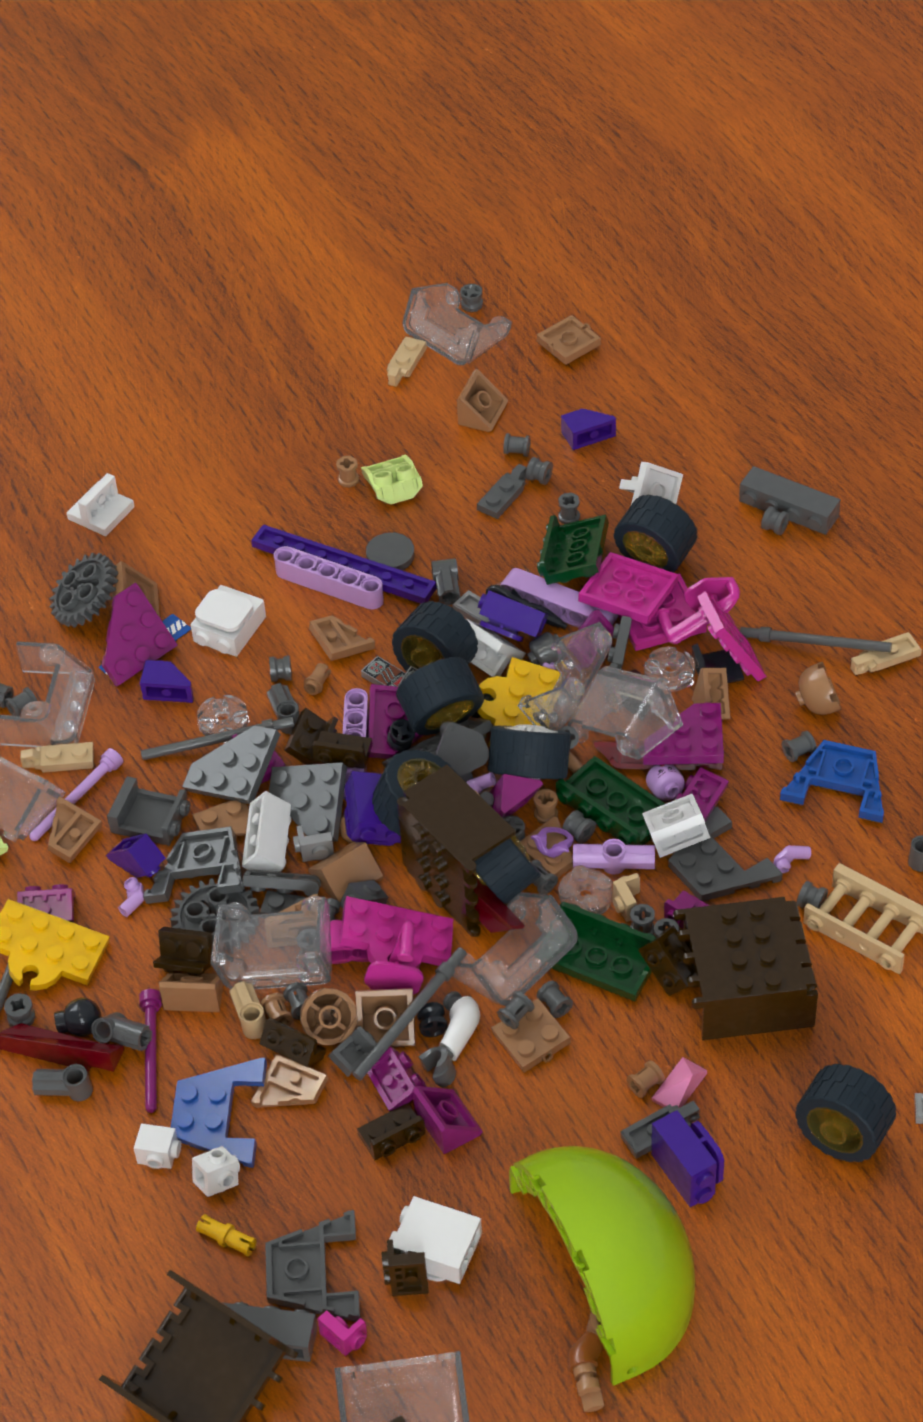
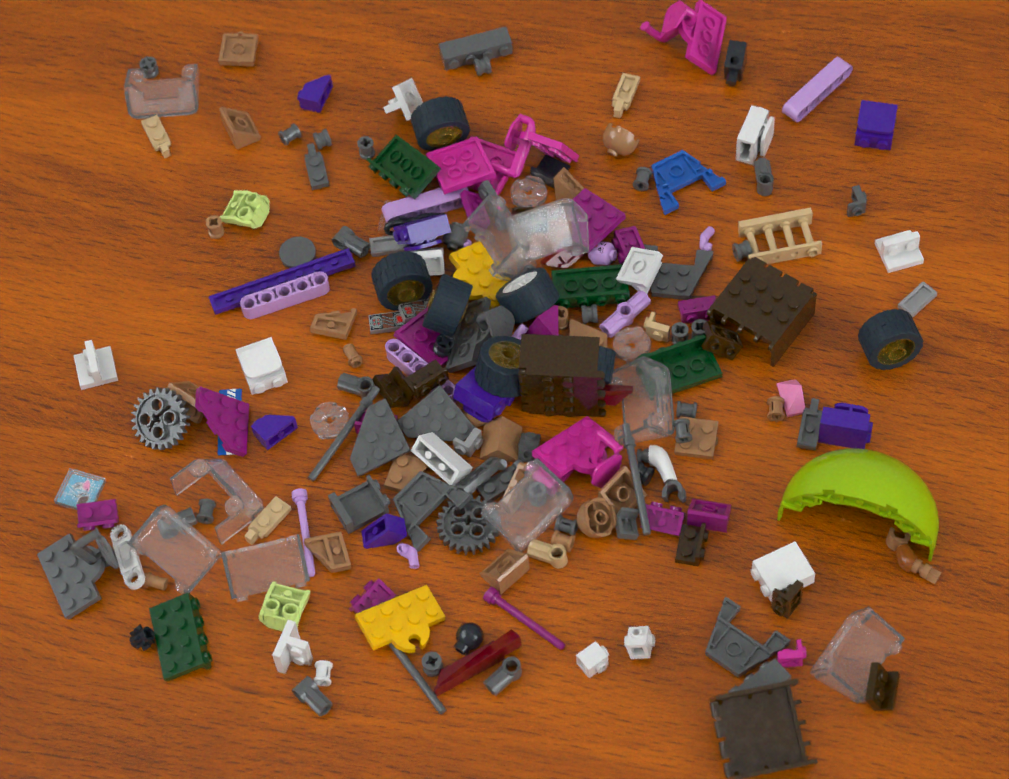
camera: 45 degrees left, 10 degrees up
(122, 1031) = (503, 622): dark grey piece -> none
(184, 950) = (480, 554): dark brown bracket -> none
(205, 1107) = (590, 619): wing -> none
(226, 1235) = (679, 667): yellow pin -> none
(280, 668) = (326, 367): dark grey wheel -> none
(289, 1084) = (615, 569): medium nougat wing -> none
(291, 1043) = (594, 548): dark brown bracket -> none
(557, 849) = (598, 330): medium lavender piece -> none
(766, 634) = (553, 132): dark grey bar -> none

